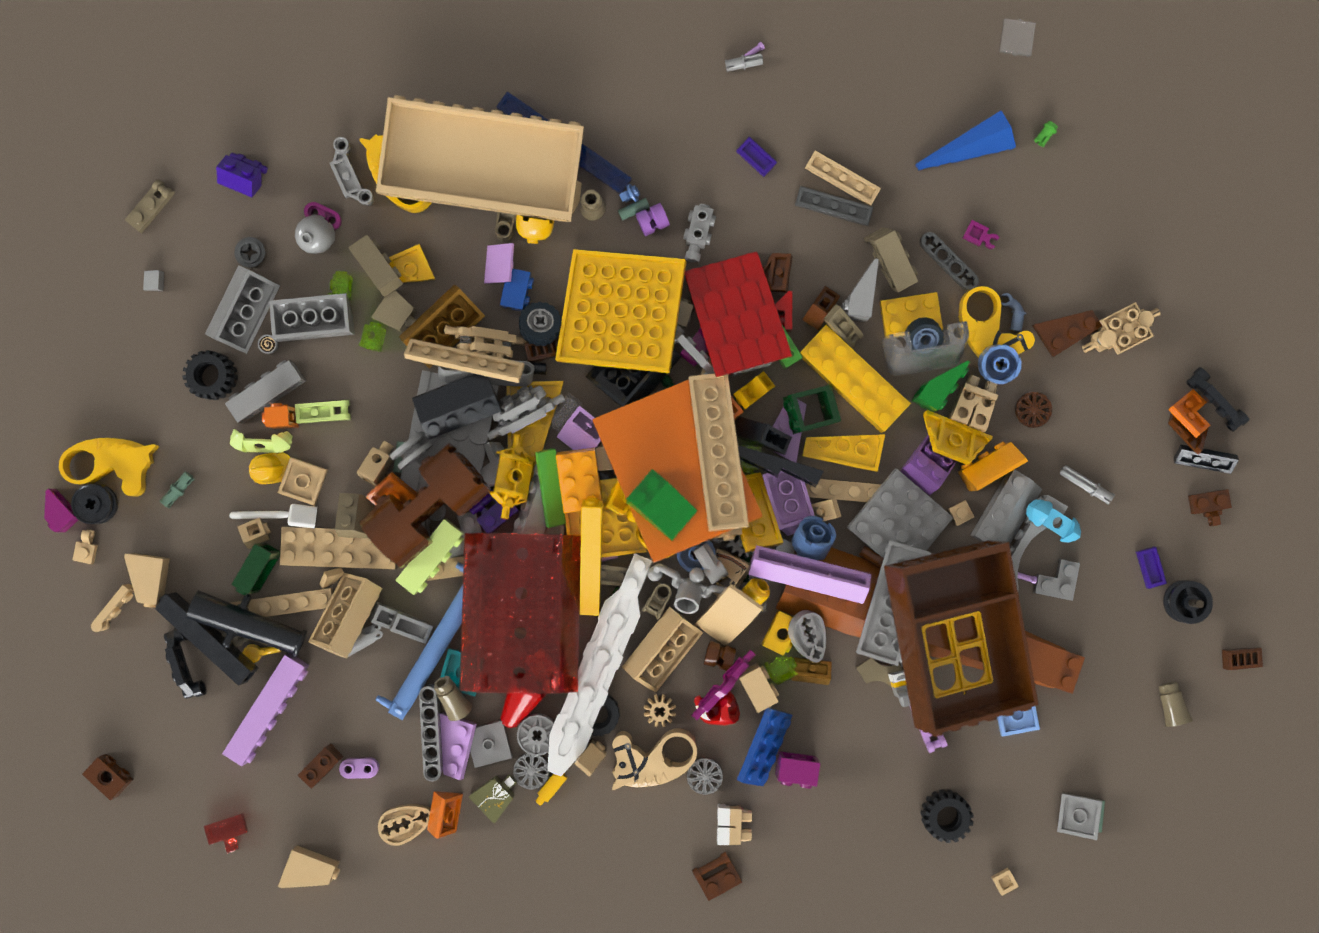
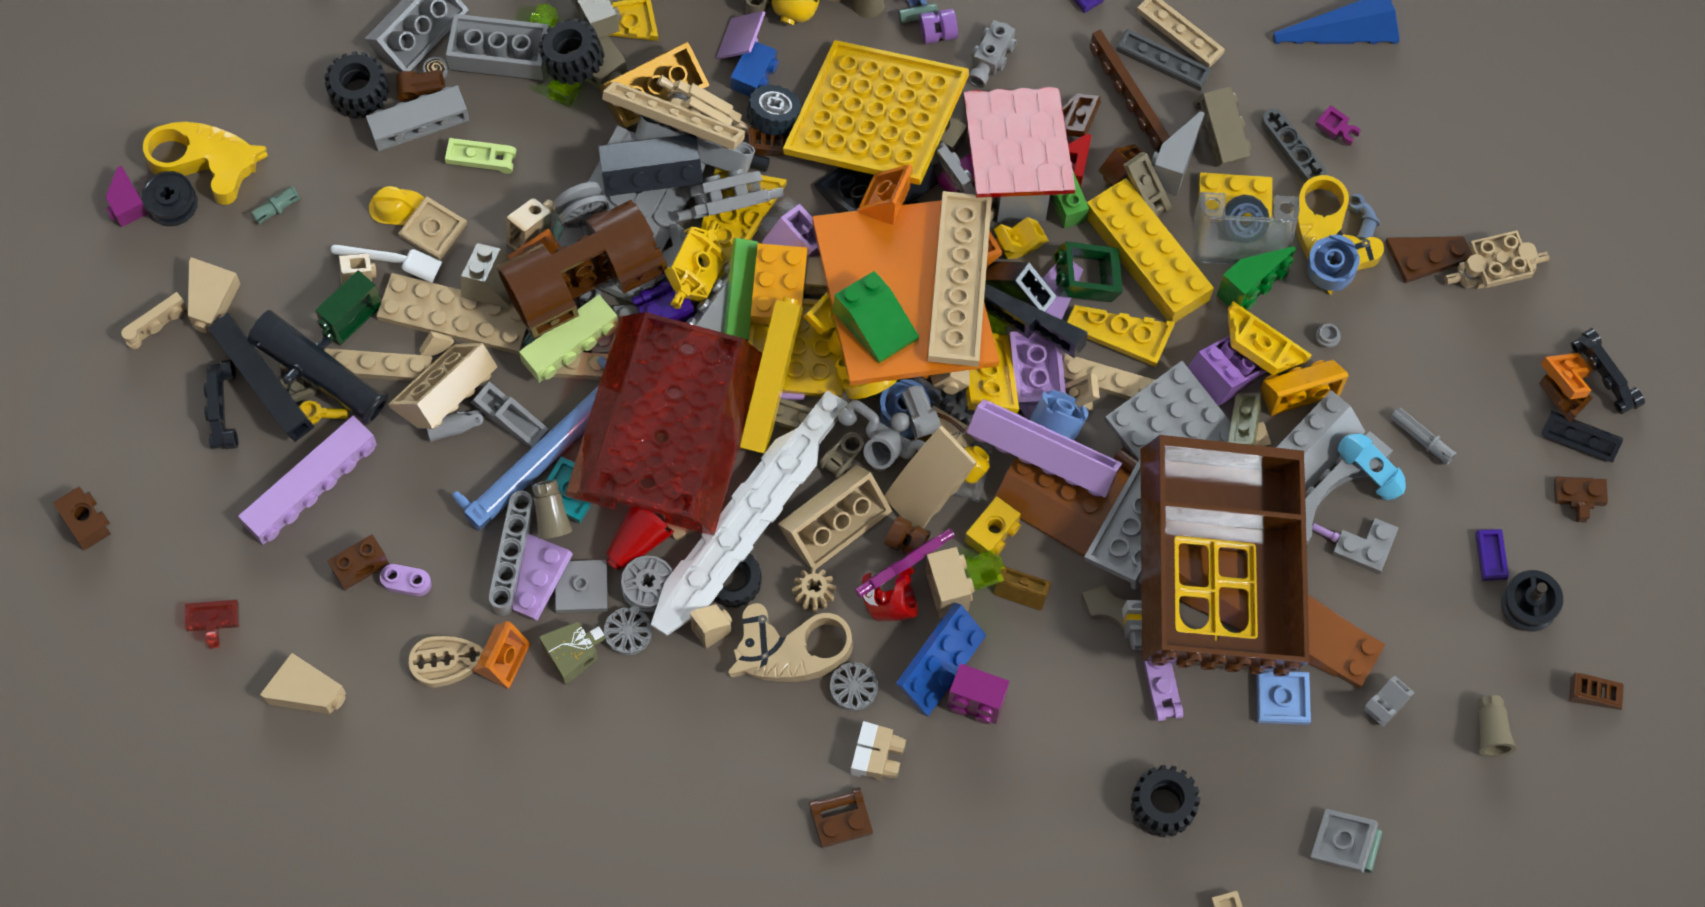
camera: 10 degrees right, 20 degrees down
(85, 550) = (140, 251): tan plate -> none
(255, 363) = (413, 85): none -> reddish brown piece
(277, 444) = (414, 177): yellowish green piece -> none
(279, 416) = (429, 144): orange brick -> none
(356, 314) = (566, 38): none -> black tyre
(550, 788) = (649, 655): yellow cylinder -> none
(644, 388) = (886, 194): none -> orange slope
(809, 238) = (1127, 87): none -> reddish brown plate
(816, 640) = (1039, 528): light grey piece -> none
(953, 508) = (1245, 418): none -> olive plate
(974, 404) = (1298, 304): tan hips -> none
(1001, 417) = (1328, 335): none -> light grey plate
(1033, 409) = (1370, 335): reddish brown wheel -> none
(1049, 129) = (1443, 29): bright green pin -> none
(1093, 703) = (1388, 701): none -> light grey brick

